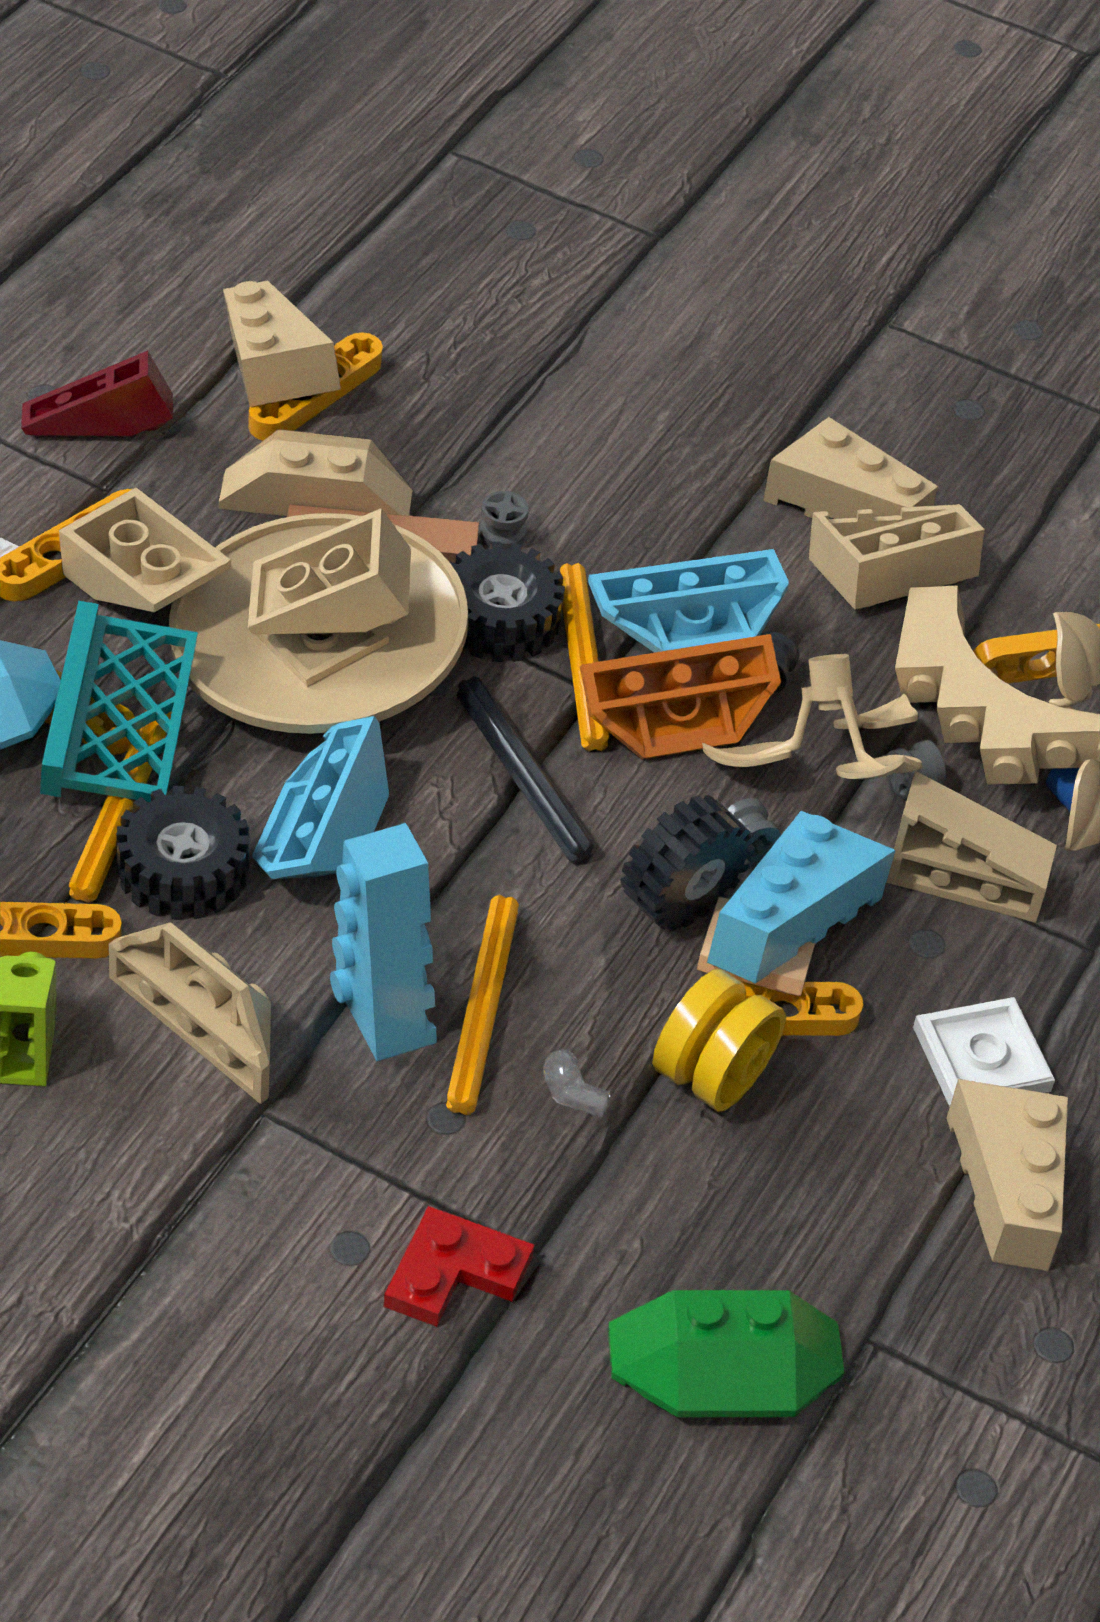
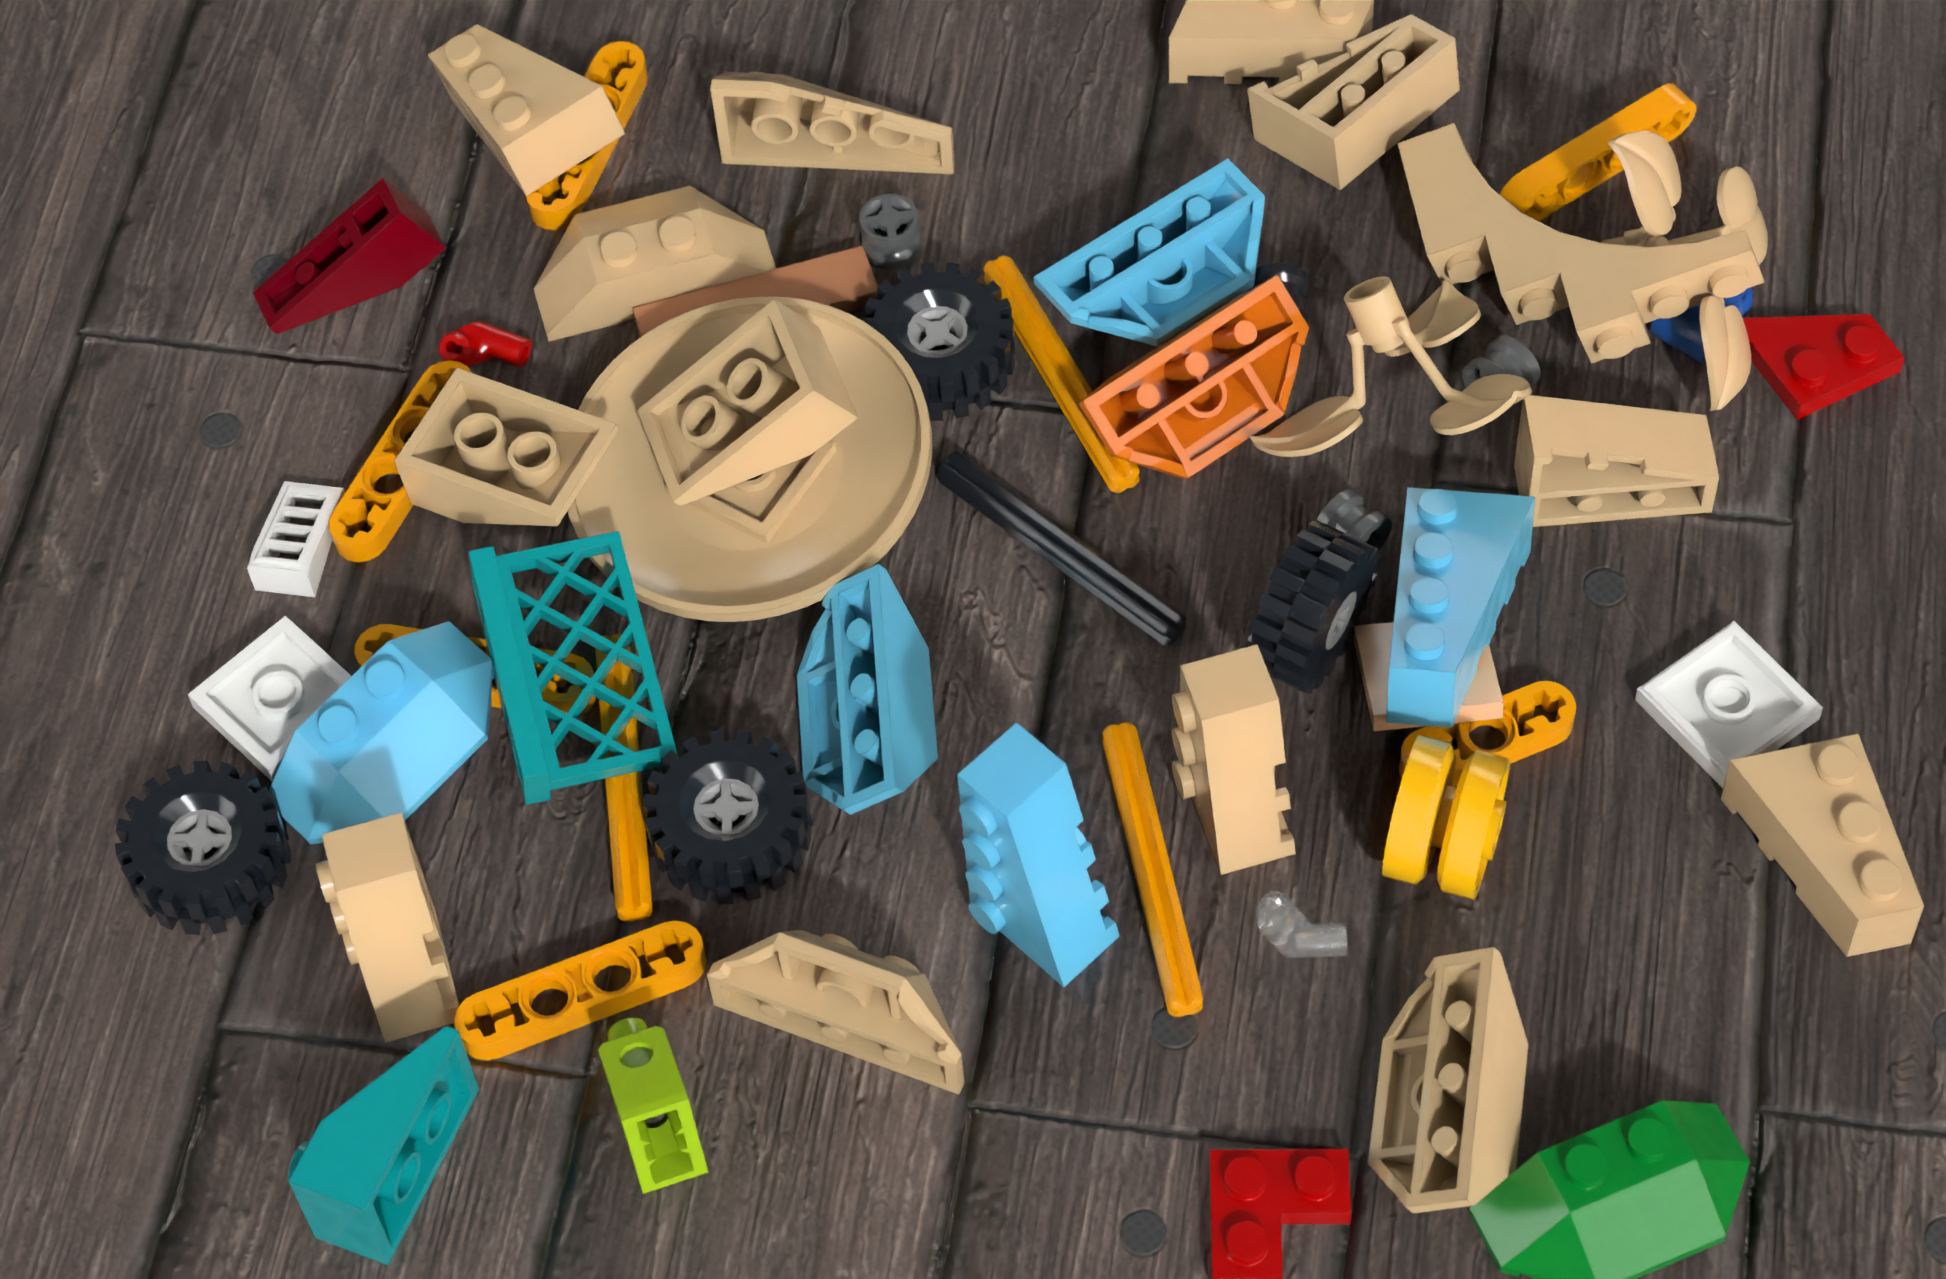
camera: 10 degrees left, 10 degrees up
(170, 490) = (482, 342): none -> red arm
(478, 432) = (808, 126): none -> tan wedge
(575, 937) = (1229, 755): none -> tan wedge
(637, 1225) = (1451, 1086): none -> tan wedge

